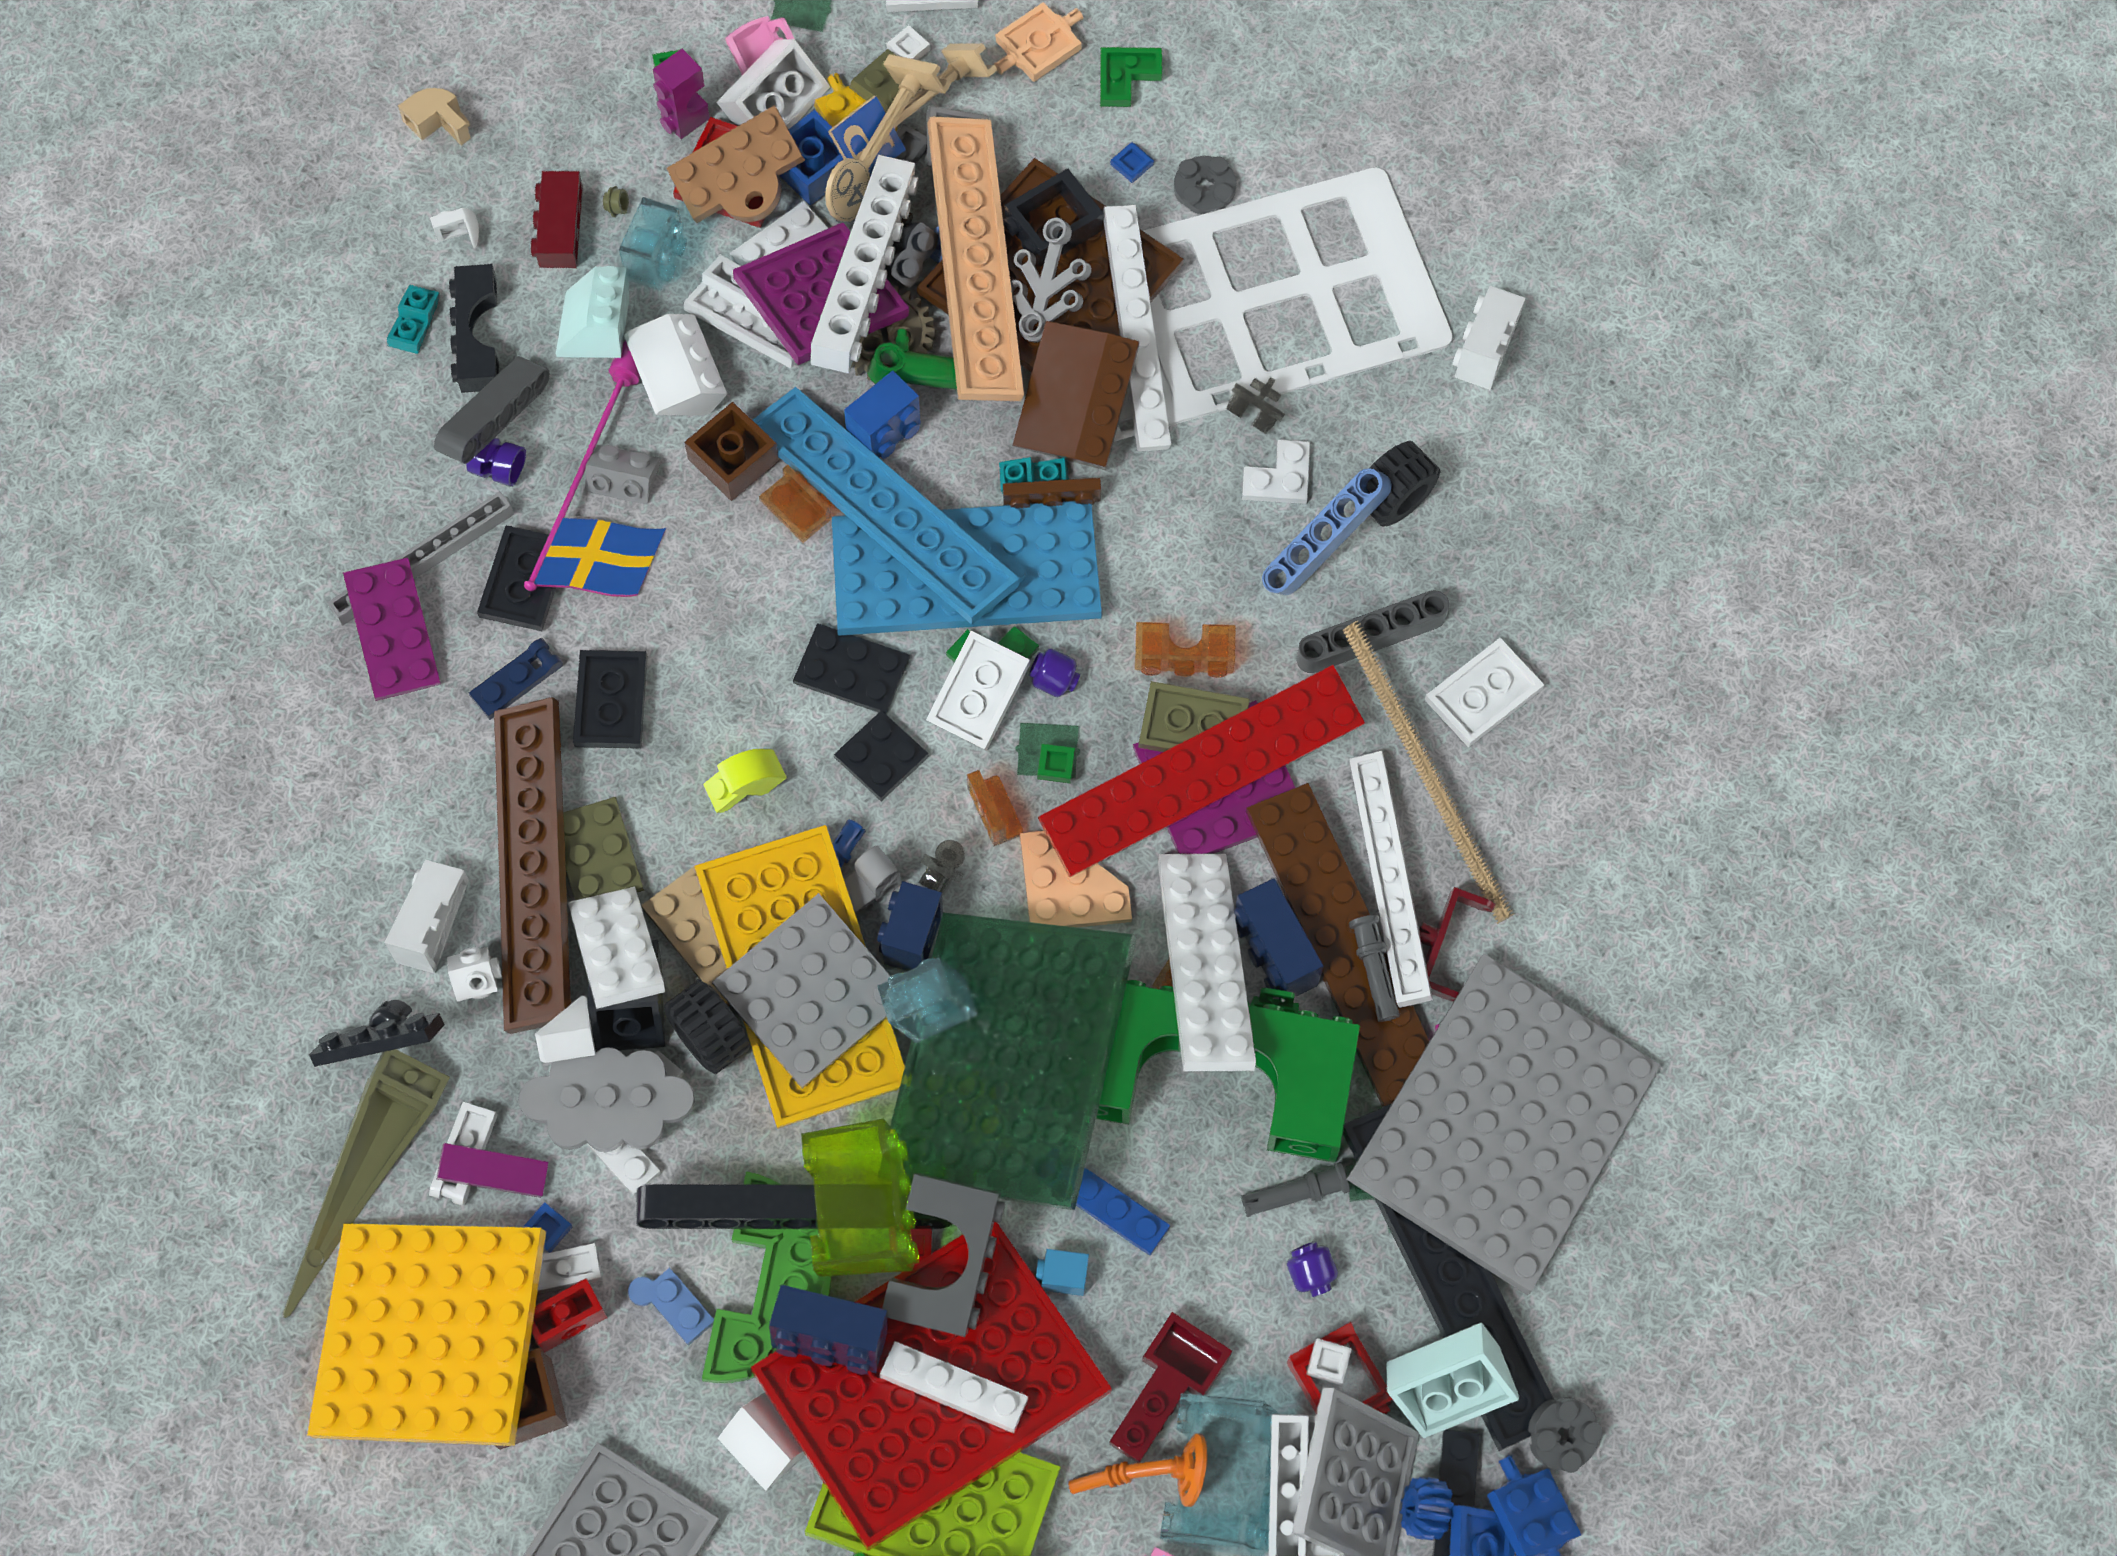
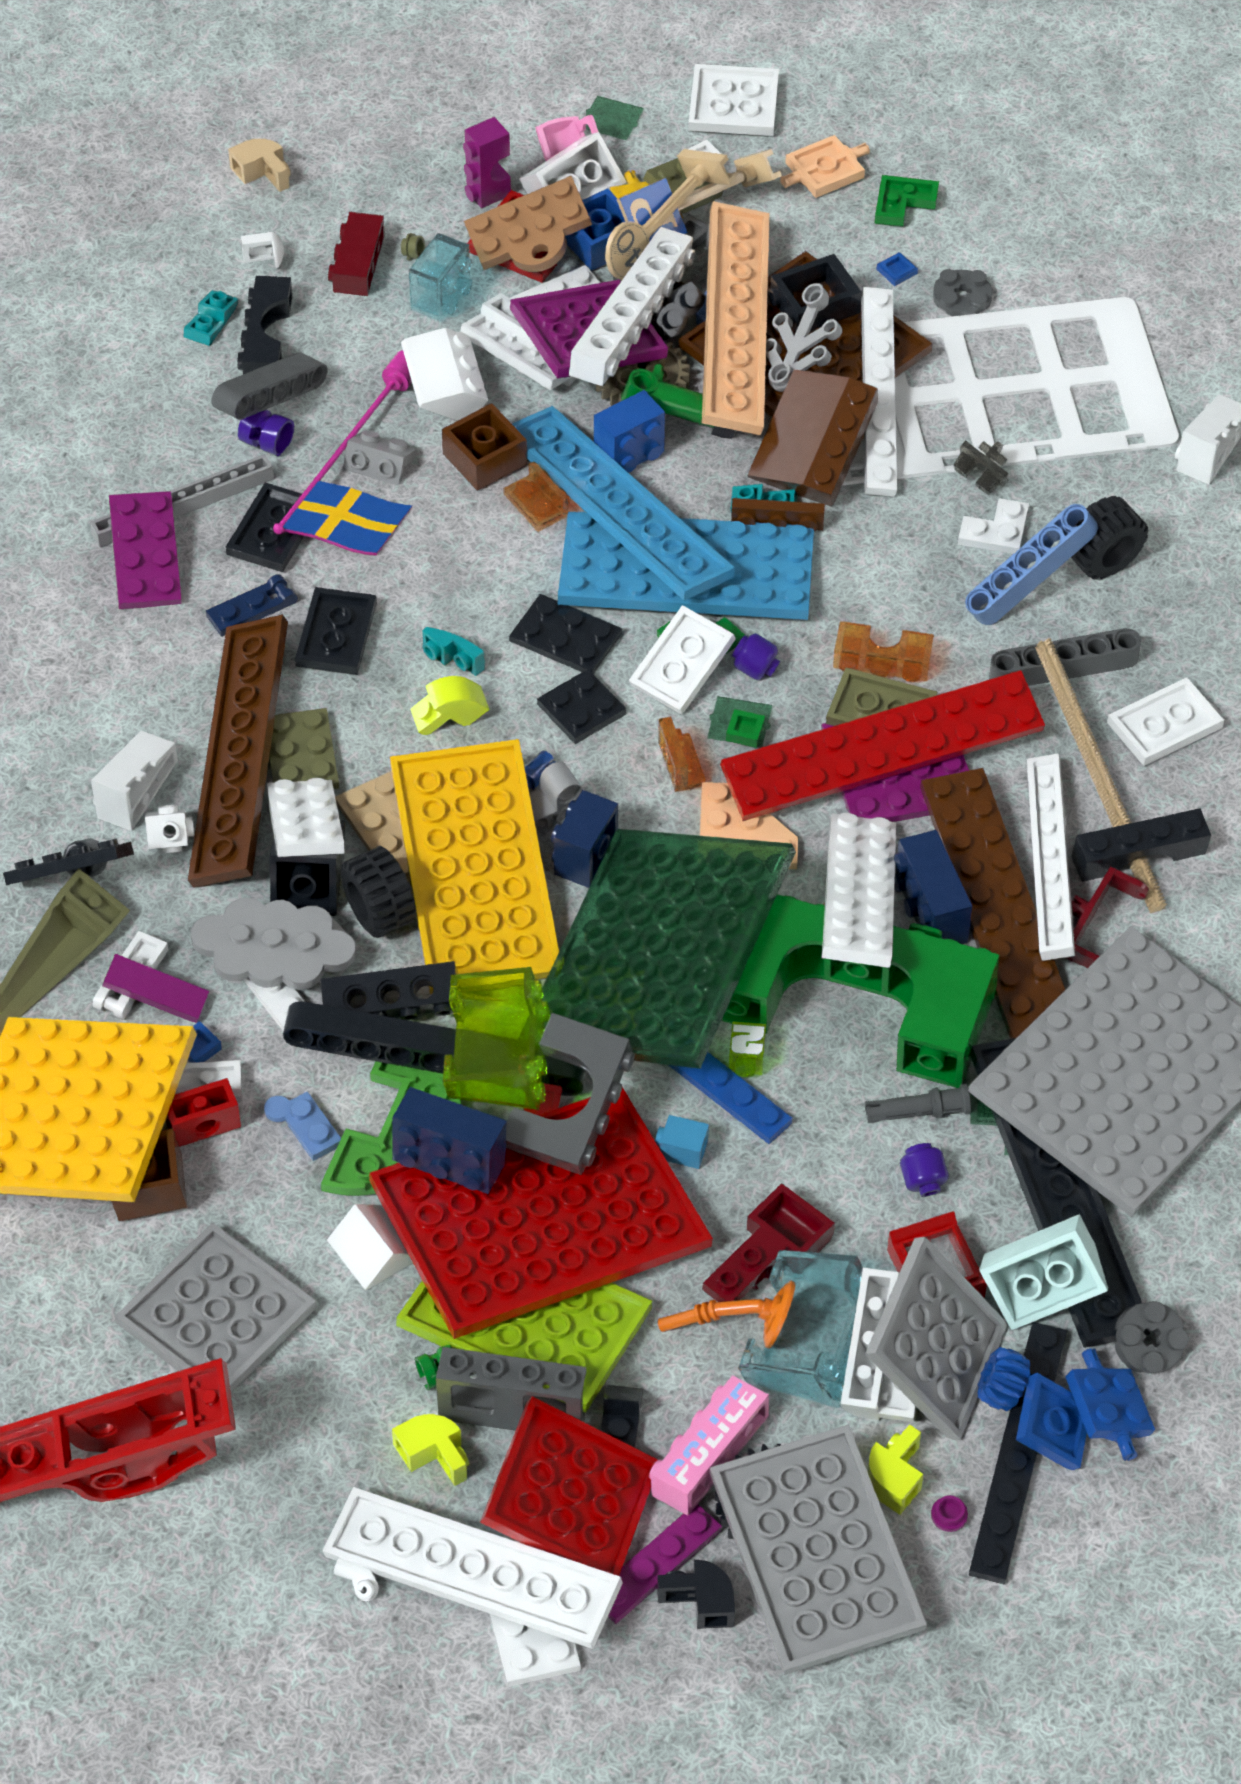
camera: 10 degrees right, 15 degrees down
(567, 1034) = (245, 881): white slope -> none
(595, 315) = (379, 326): light aqua slope -> none
(683, 1149) = (407, 981): none -> black brick
(728, 705) = (448, 646): none -> teal slope
(807, 990) = (481, 874): light grey plate -> none
(926, 999) = (589, 885): clear light blue brick -> none
(943, 866) = (625, 793): clear smoke hips -> none
(954, 1387) = (560, 1213): white plate -> none
(1113, 1152) = (747, 1048): none -> brick
(1328, 1361) = (933, 1232): white tile -> none
(1372, 953) = (1022, 909): dark grey pin -> none
(1478, 848) = (1173, 835): none -> black arch

